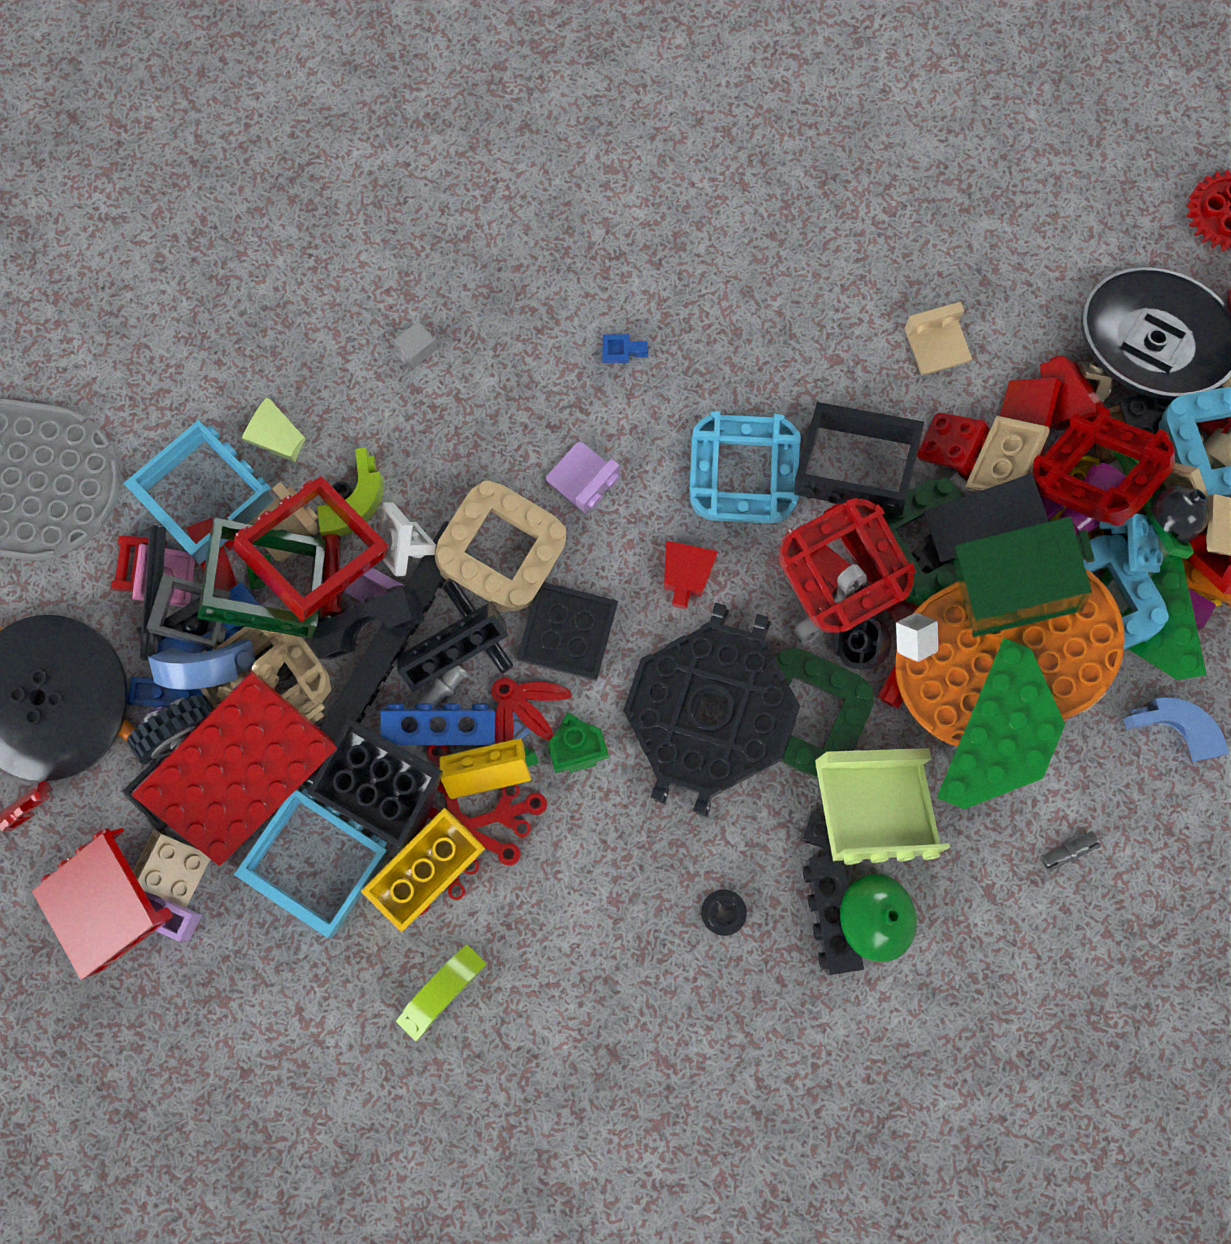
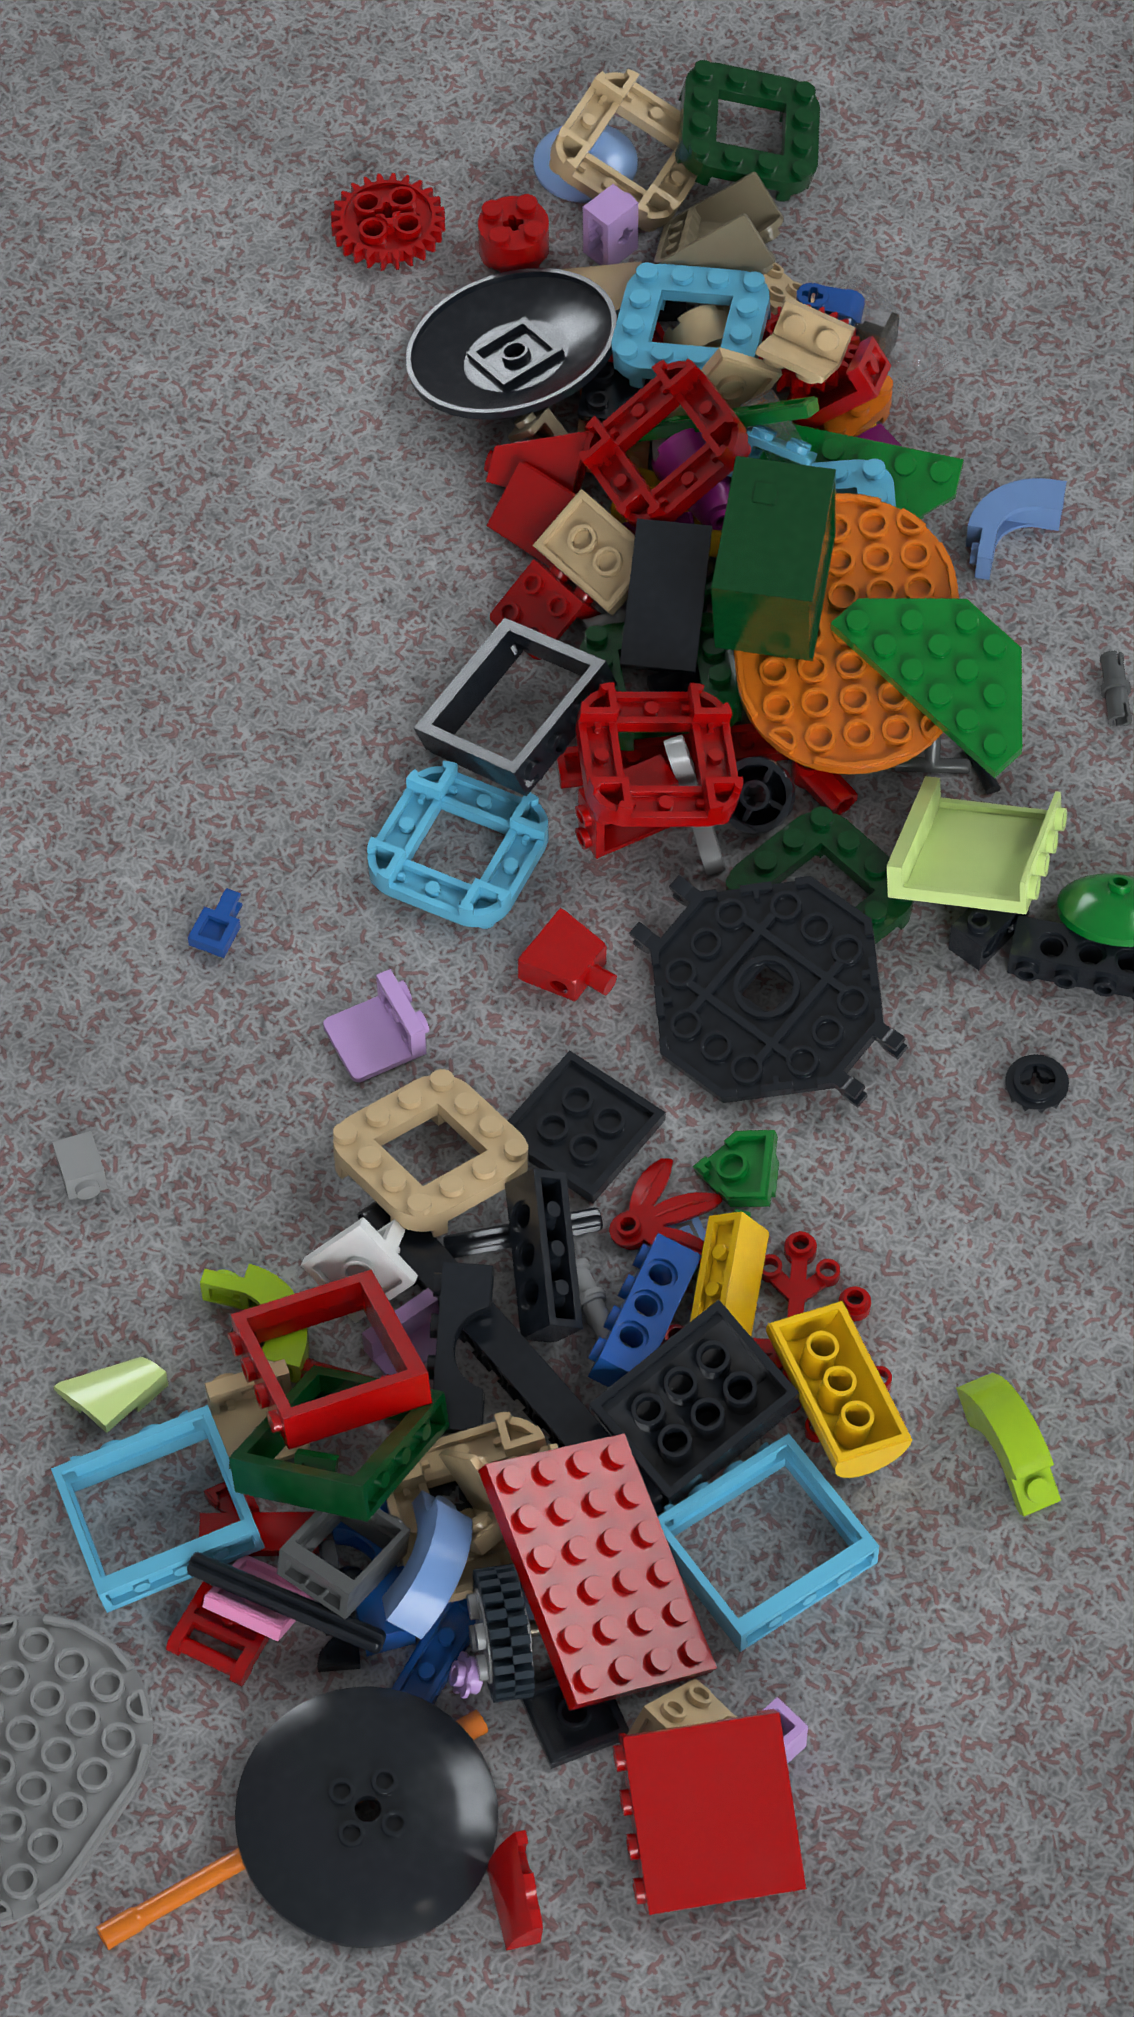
camera: 70 degrees left, 20 degrees down
(917, 636) = (785, 715): white panel -> none
(938, 339) = (394, 576): tan bracket -> none
(1181, 510) = (761, 384): black cylinder -> none

